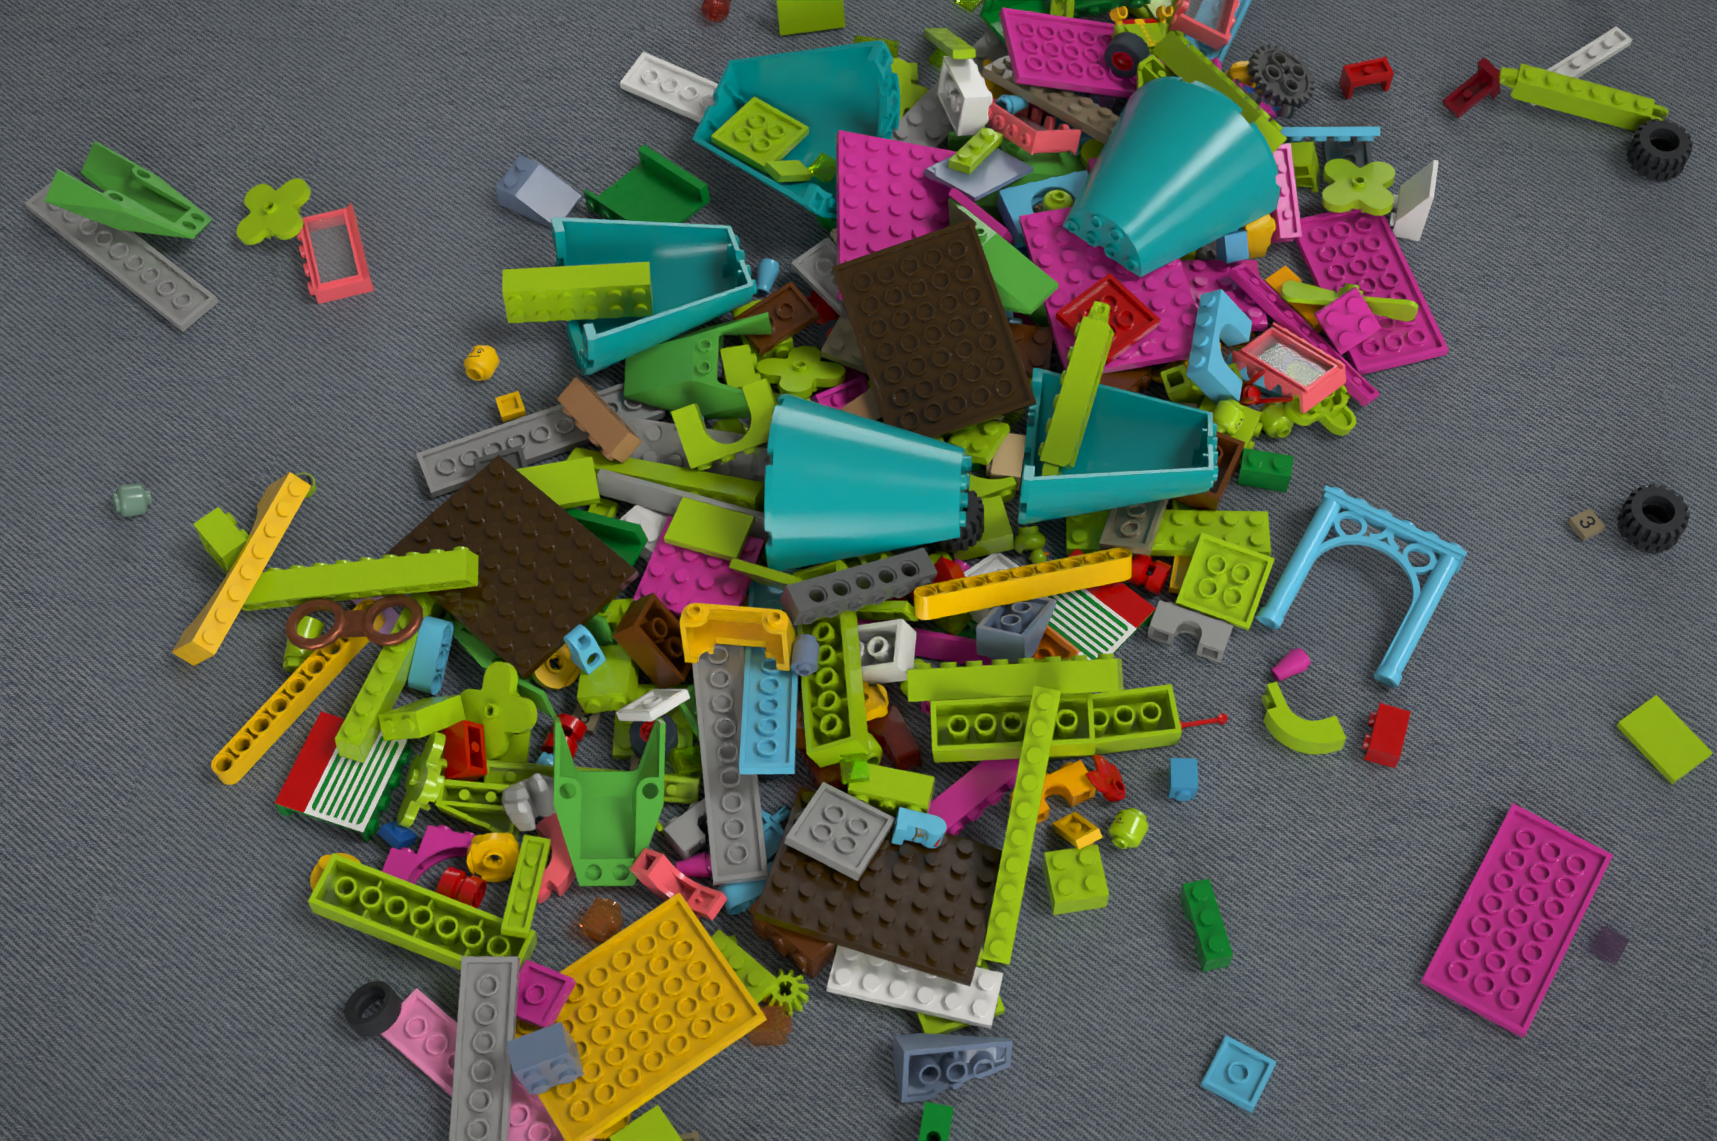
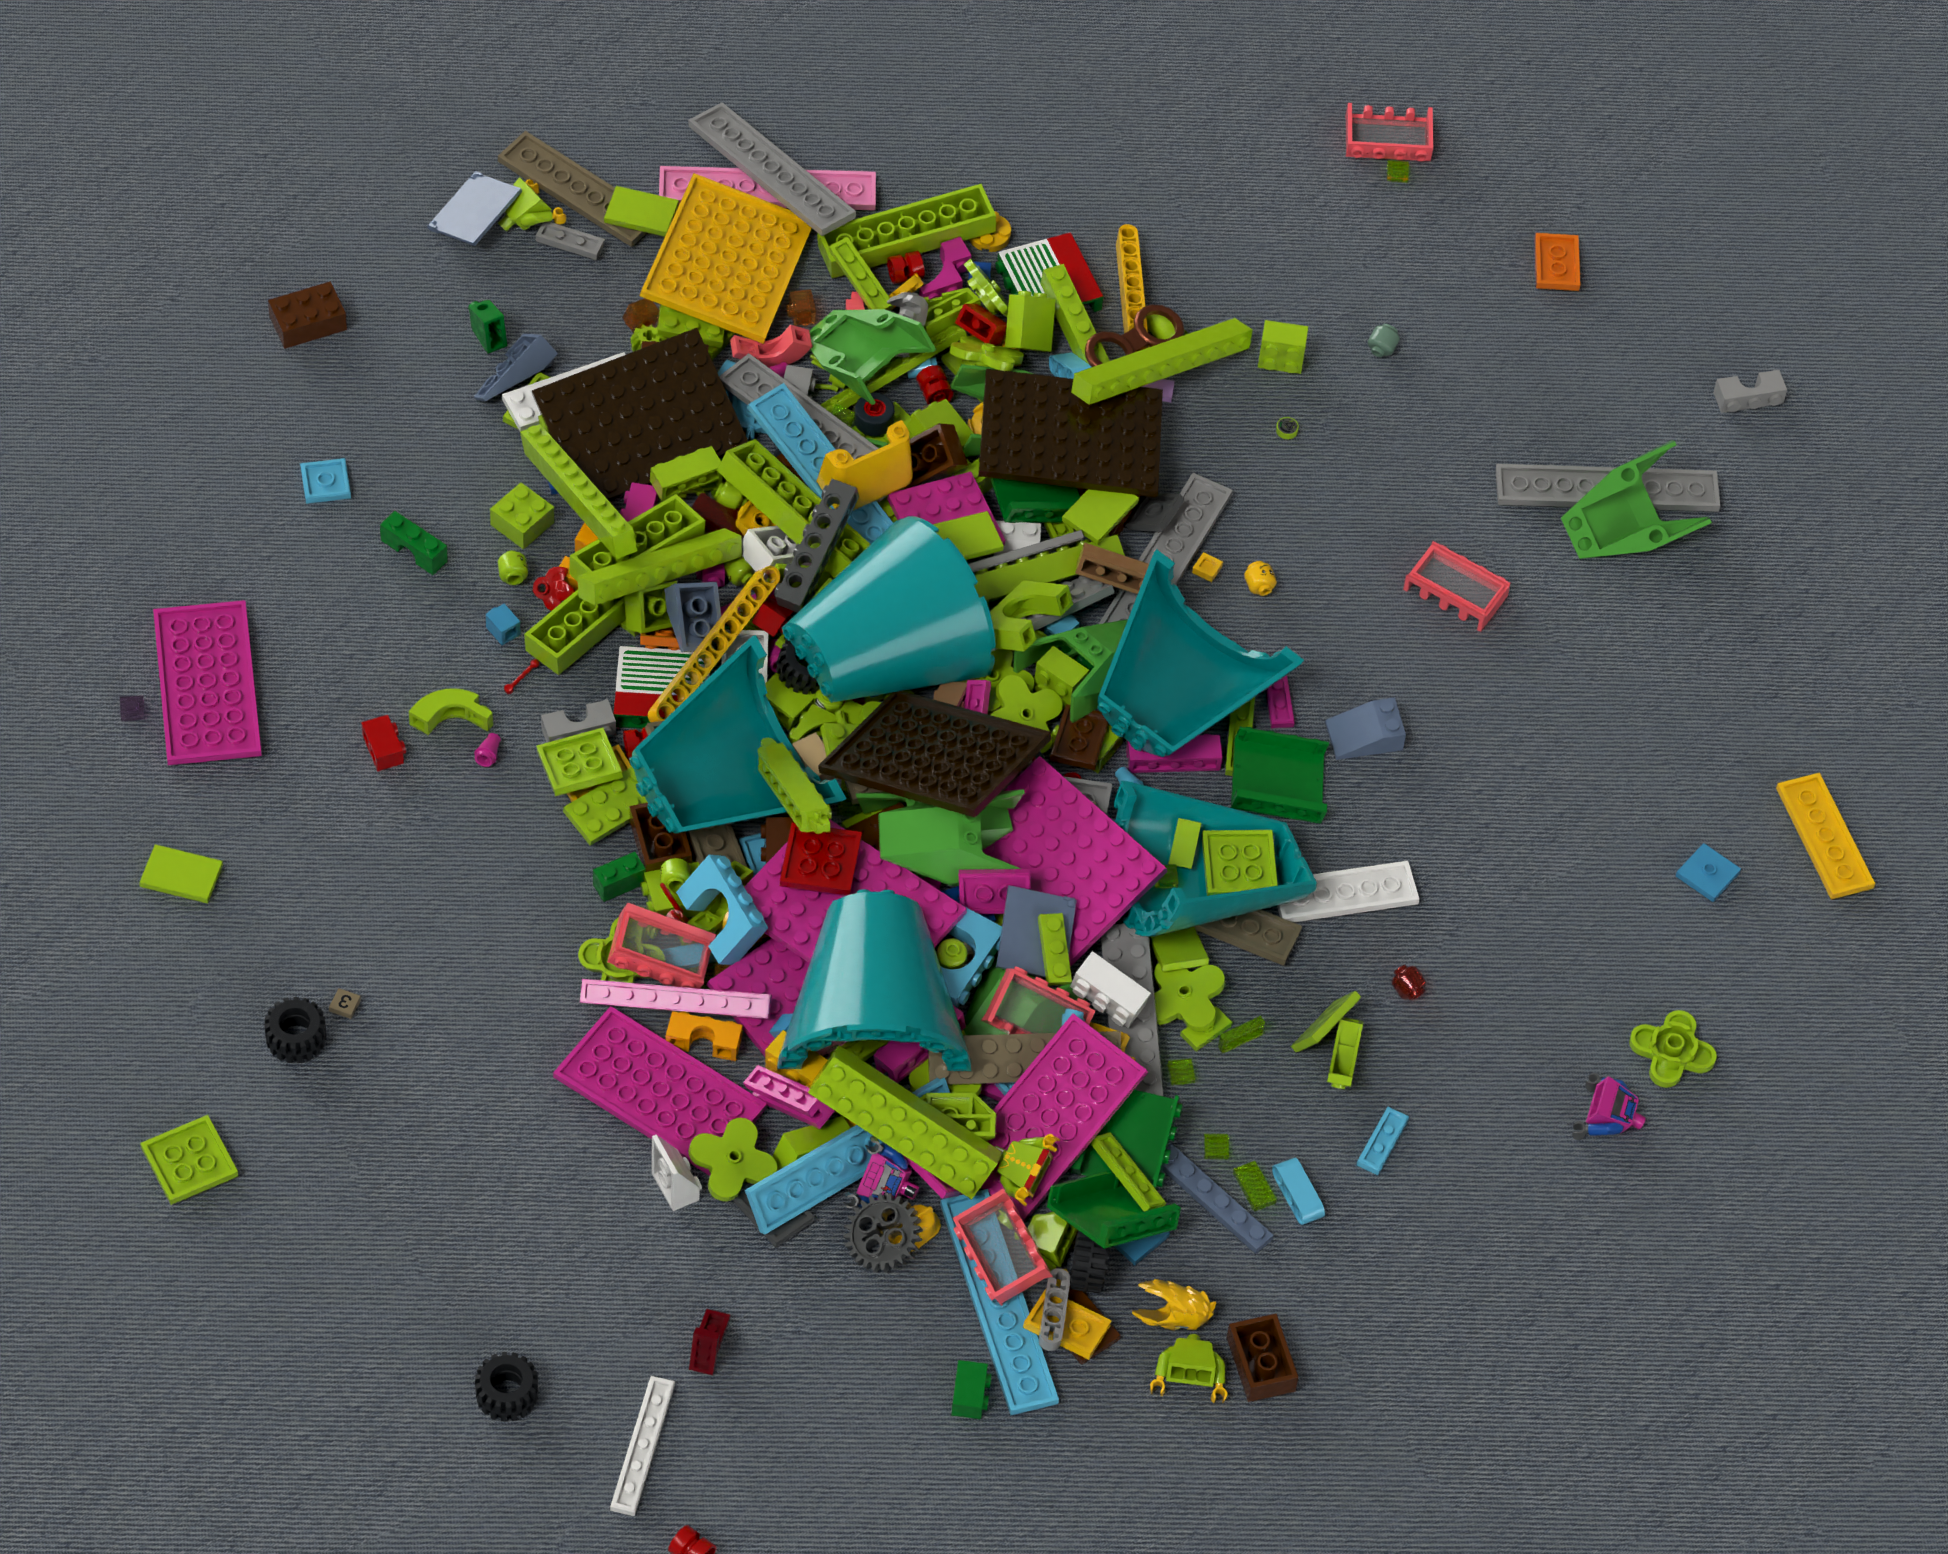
camera: 135 degrees right, 5 degrees down
(273, 212) = (1533, 578): lime plant -> none
(273, 517) = (1229, 293): yellow arch -> none
(363, 998) = (893, 167): black tyre -> none
(541, 994) = (794, 237): dark pink plate -> none
(545, 1058) = (749, 193): sand blue brick -> none
(577, 292) = (1231, 637): lime brick -> none
(581, 647) = (969, 417): medium azure leg -> none
(653, 704) = (885, 412): white tile -> none
(763, 575) = (873, 517): lime tile -> none
(805, 655) = (811, 487): sand blue brick -> none
(840, 831) = (693, 418): light grey plate -> none
(854, 768) = (715, 455): clear neon green tile -> none
(918, 828) = (640, 465): medium azure leg -> none
(950, 43) = (1170, 1038): lime tile -> none
(1077, 830) = (545, 540): yellow plate -> none
(1126, 53) = (1016, 1125): black wheel -> none
(1332, 510) = (483, 864): medium azure arch -> none
(1347, 320) = (646, 1018): dark pink plate -> none
(1364, 74) = (811, 1288): red panel -> none
(1391, 308) = (694, 1024): lime piece -> none
(1580, 97) = (608, 1390): lime hinge -> none

